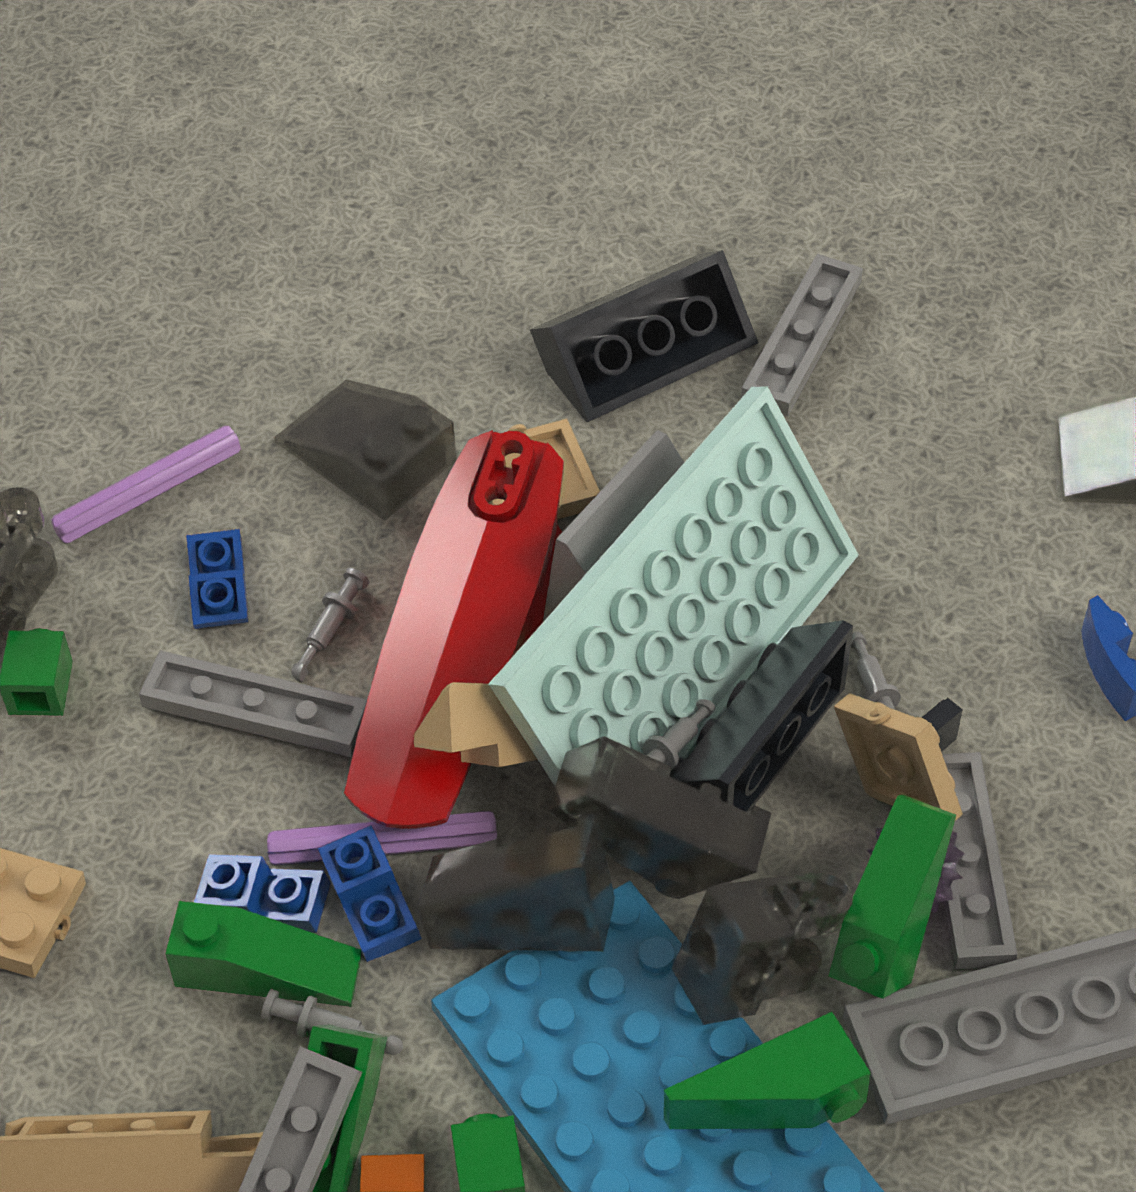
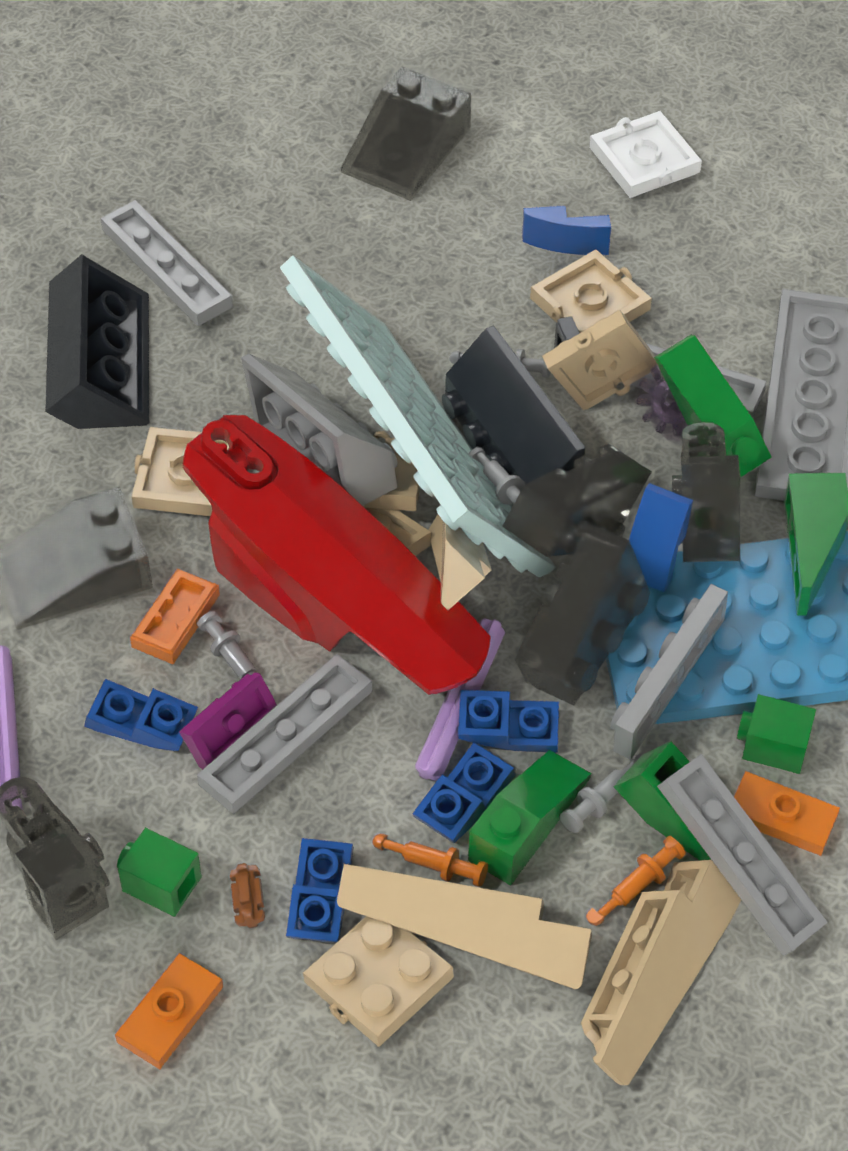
camera: 65 degrees left, 0 degrees up
(49, 758) = (247, 895): none -> dark orange piece
(74, 821) = (314, 896): none -> blue slope
(99, 967) = (471, 919): none -> tan wedge
(163, 910) = (444, 862): none -> orange piece
(239, 644) = (227, 718): none -> magenta plate
(243, 1107) = (648, 871): none -> orange piece
(333, 548) = (174, 616): none -> orange plate
(492, 1009) = (659, 684): none -> light grey plate
(657, 912) = (658, 532): none -> blue slope
(1029, 726) = (590, 292): none -> tan plate

